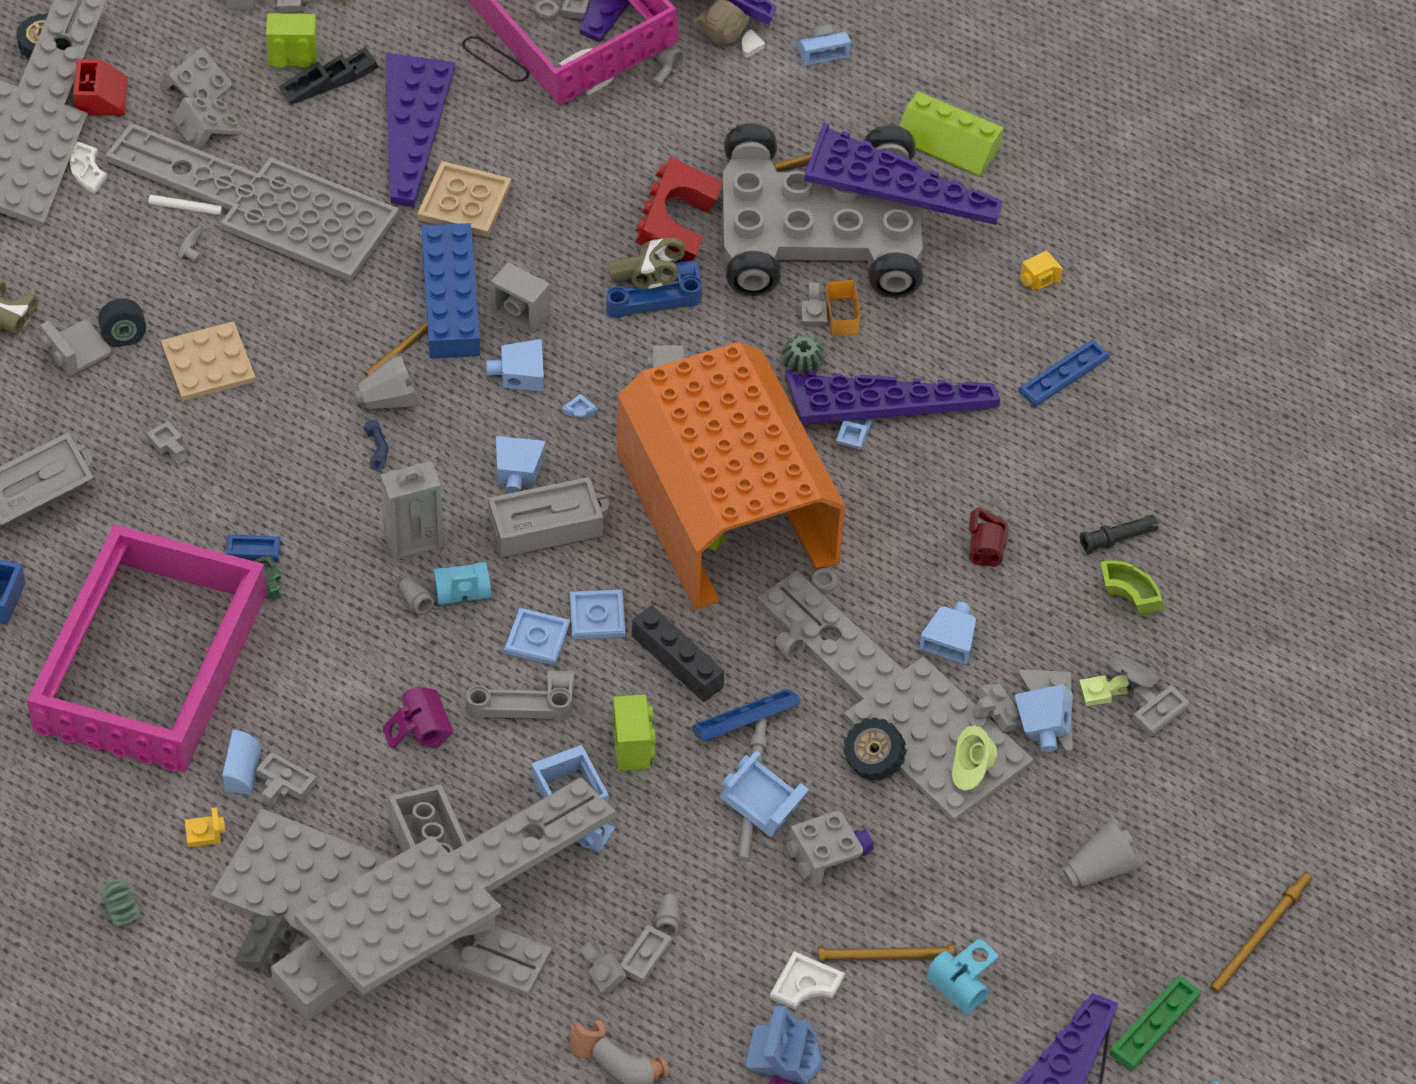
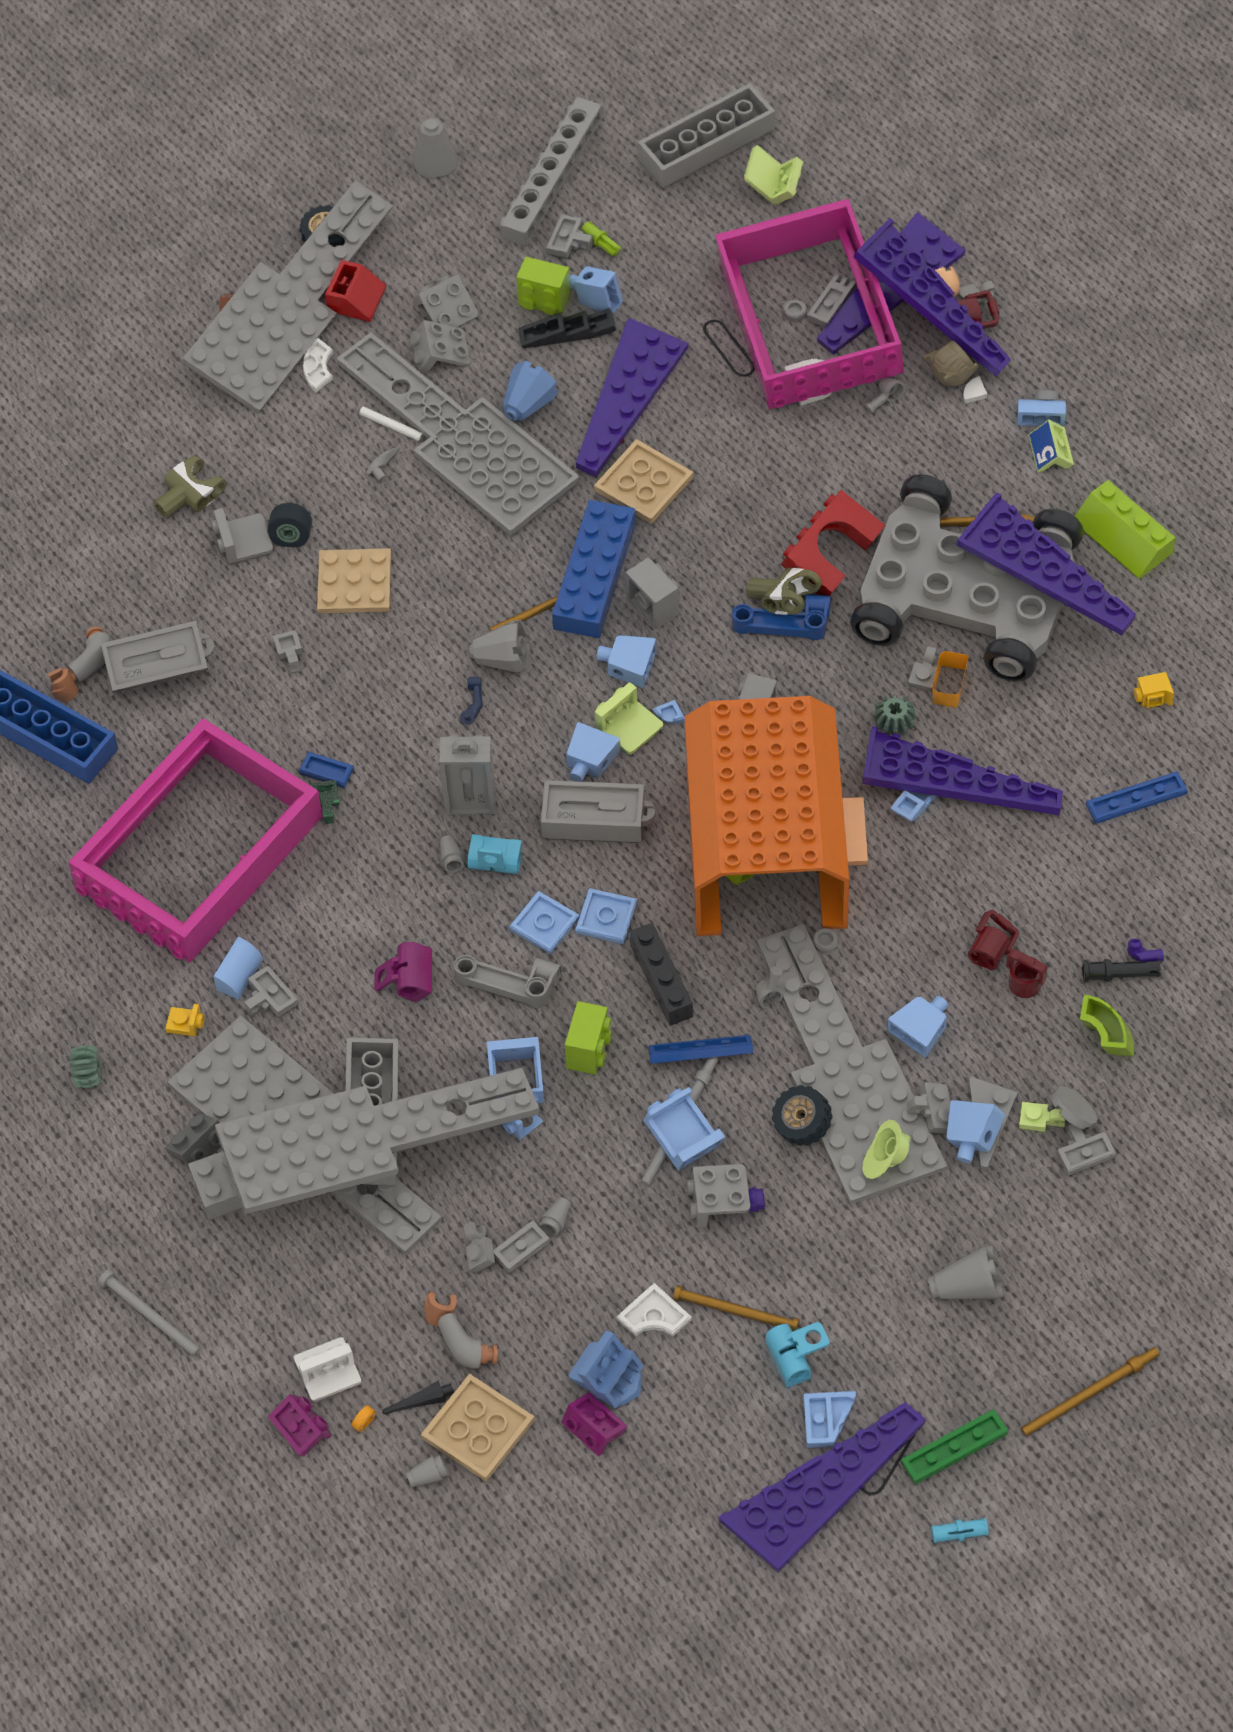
camera: 25 degrees right, 5 degrees up
(317, 139) = (528, 391): none -> medium blue cone
(345, 31) = (596, 289): none -> light blue torso
(542, 422) = (627, 719): none -> yellowish green bracket
(845, 77) = (1050, 446): none -> panel
(1018, 1030) = (826, 1416): none -> light blue wing
(1034, 558) = (1025, 974): none -> dark red piece
(1130, 514) = (1141, 954): none -> dark purple arm

